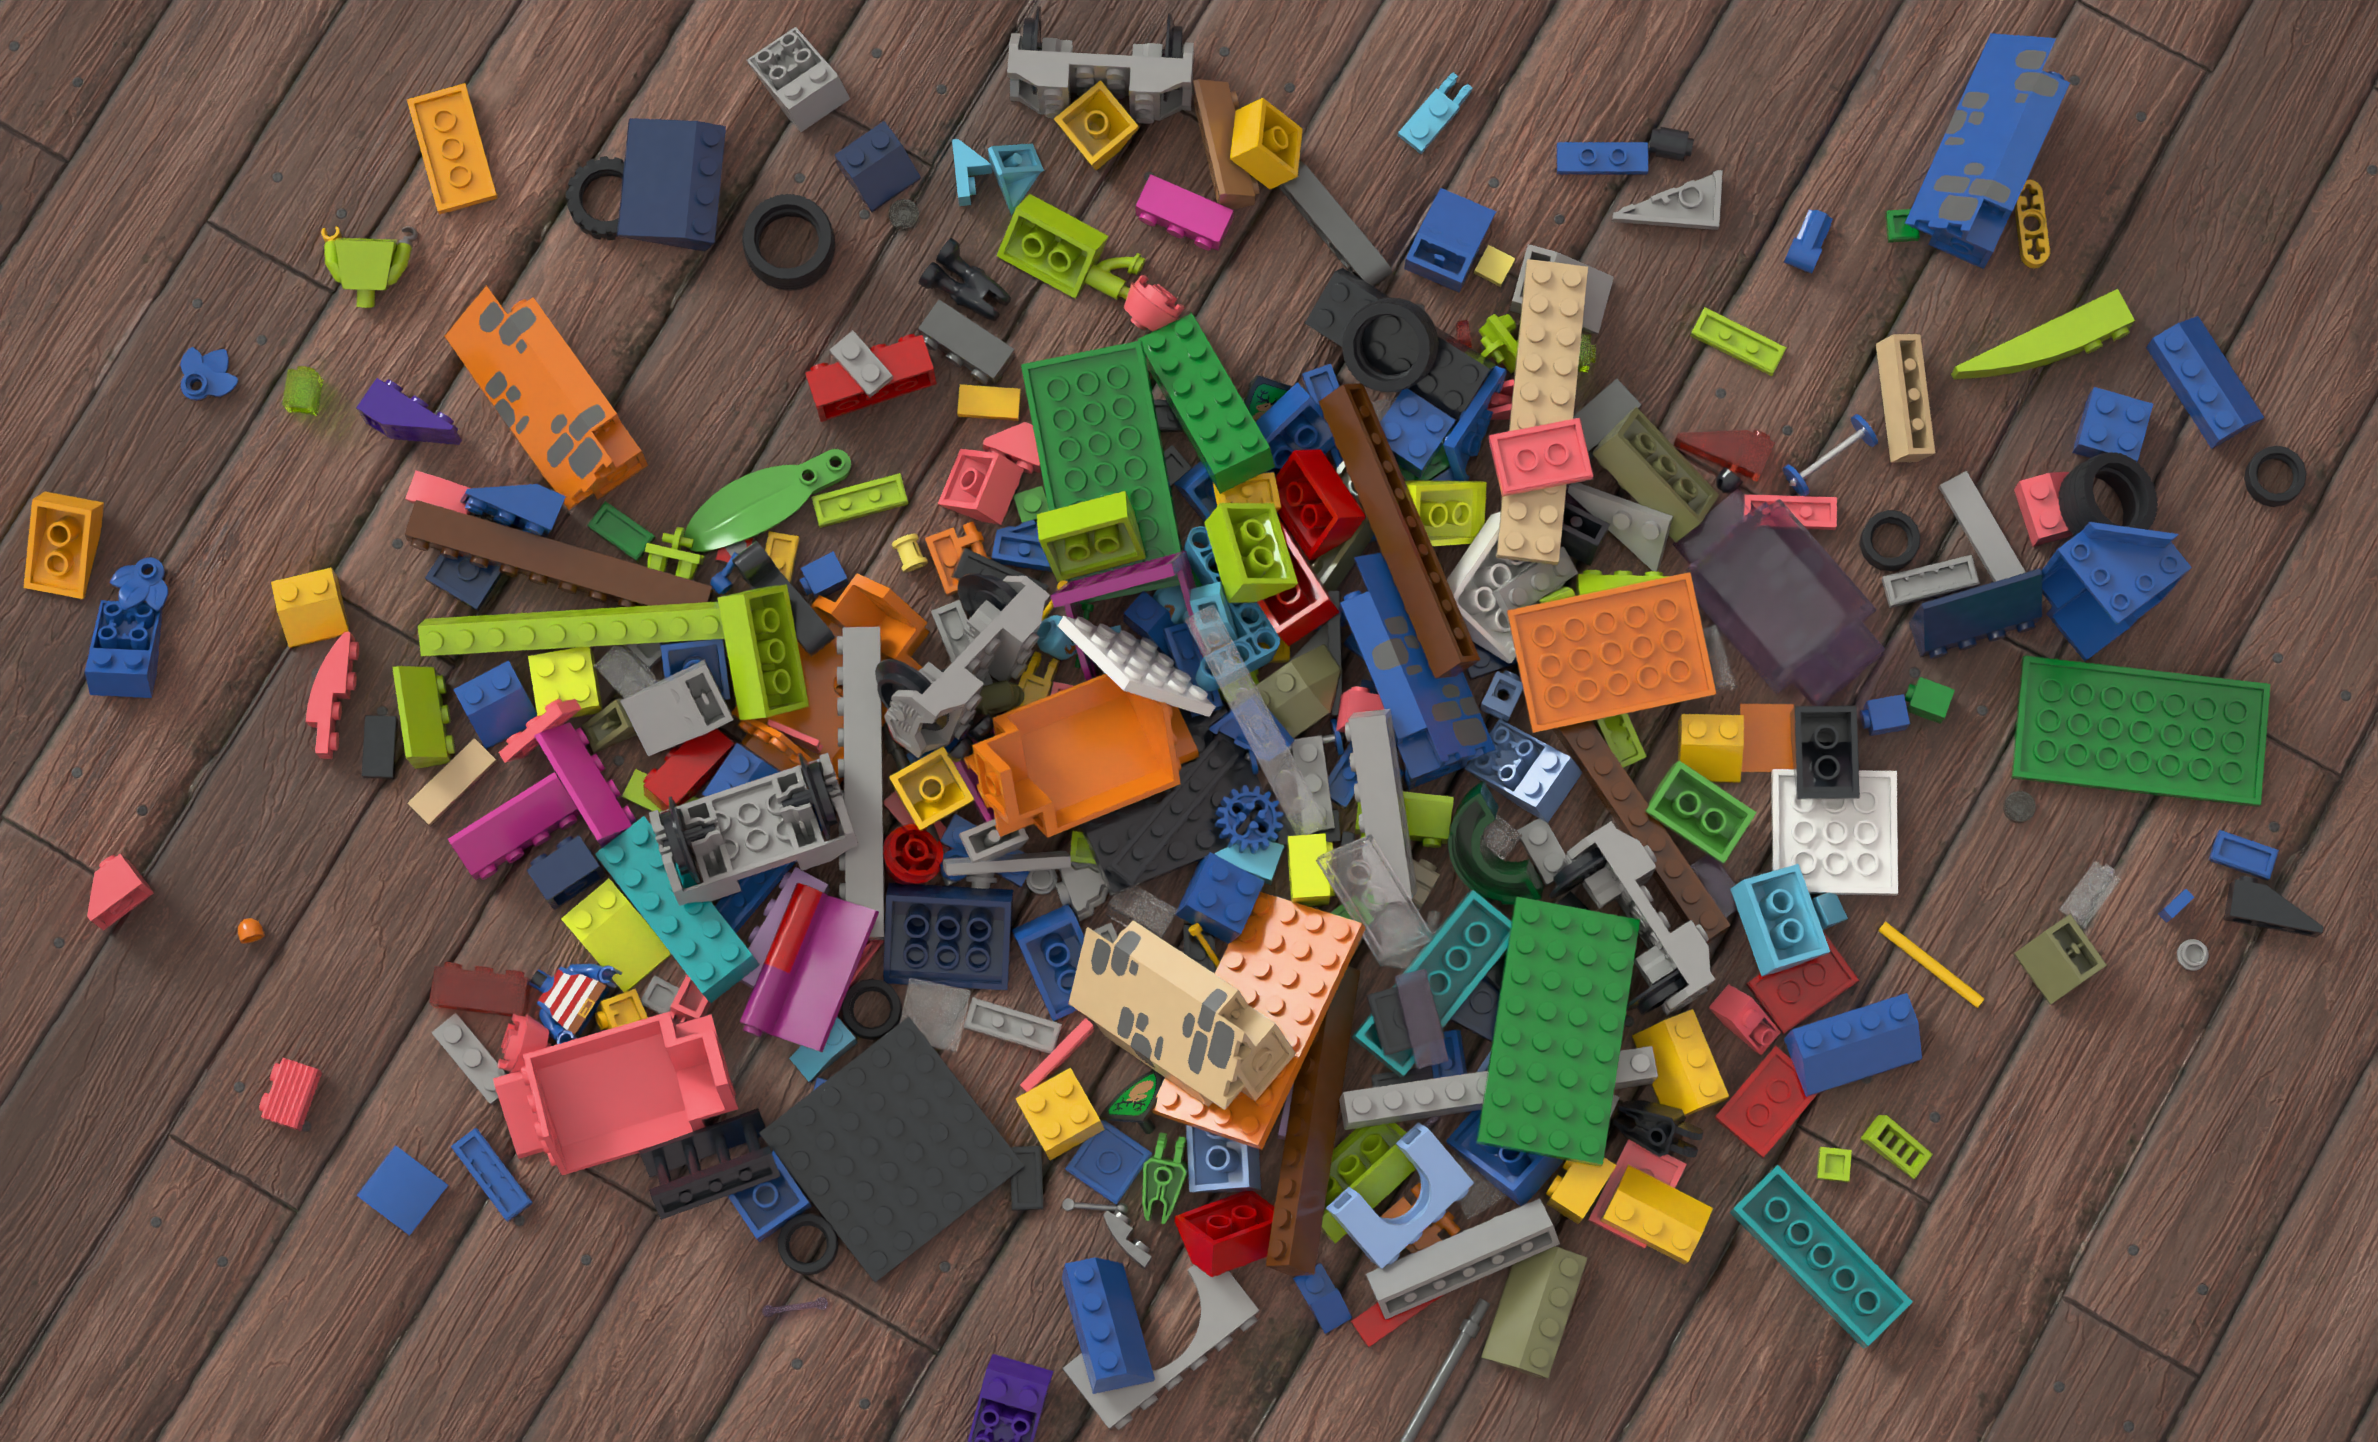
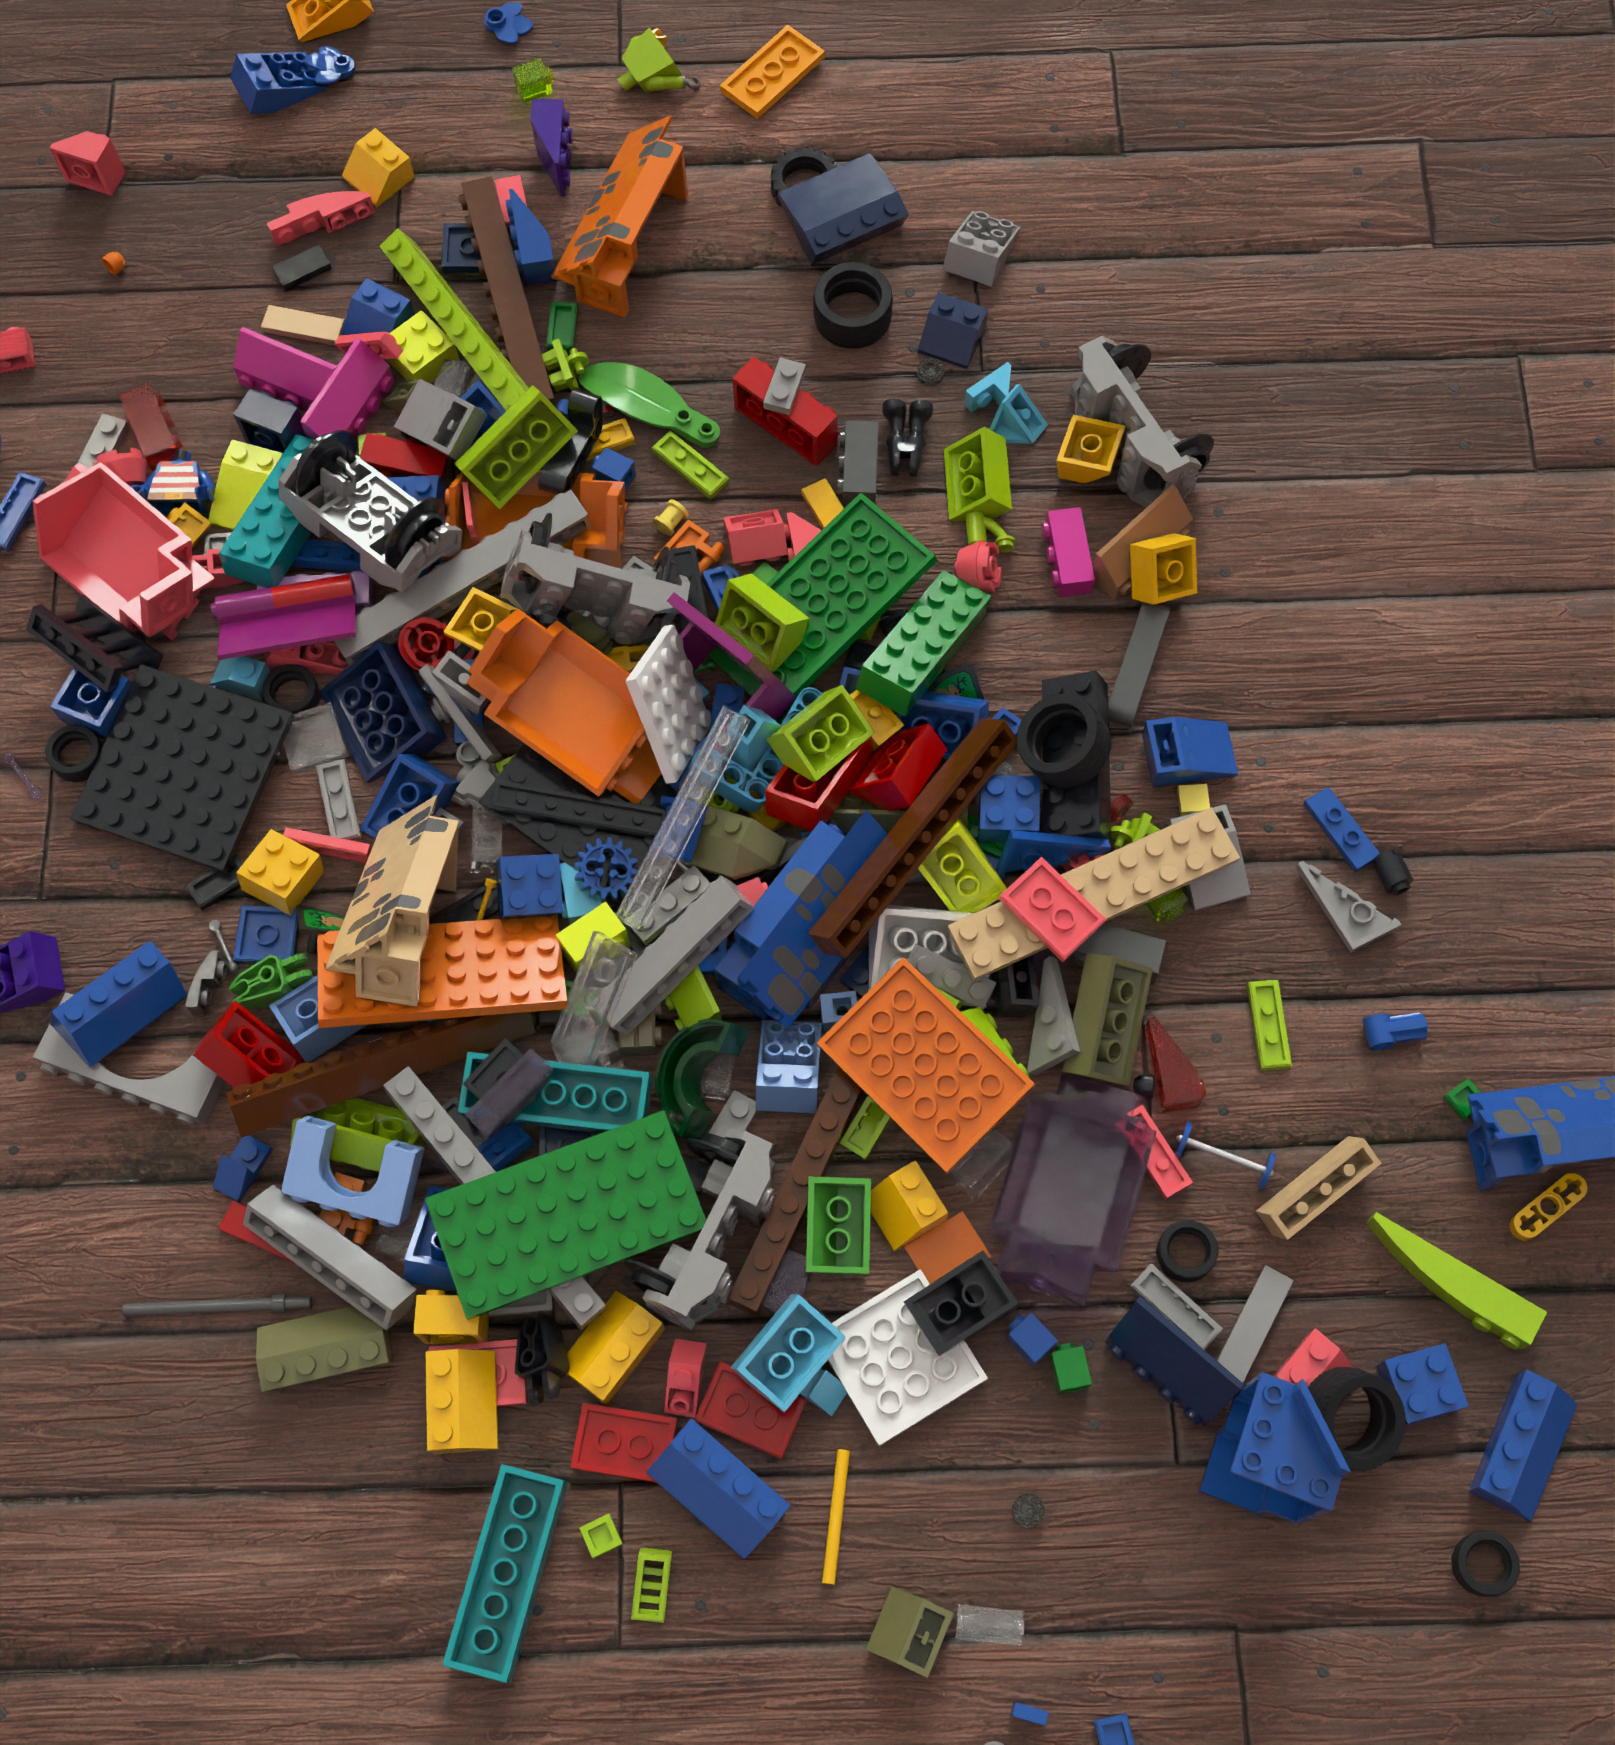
camera: 60 degrees right, 10 degrees down
(423, 716) = (334, 271): lime slope -> none
(1433, 115) = (1283, 685): medium azure hinge -> none
(2141, 731) = (1170, 1584): green plate -> none

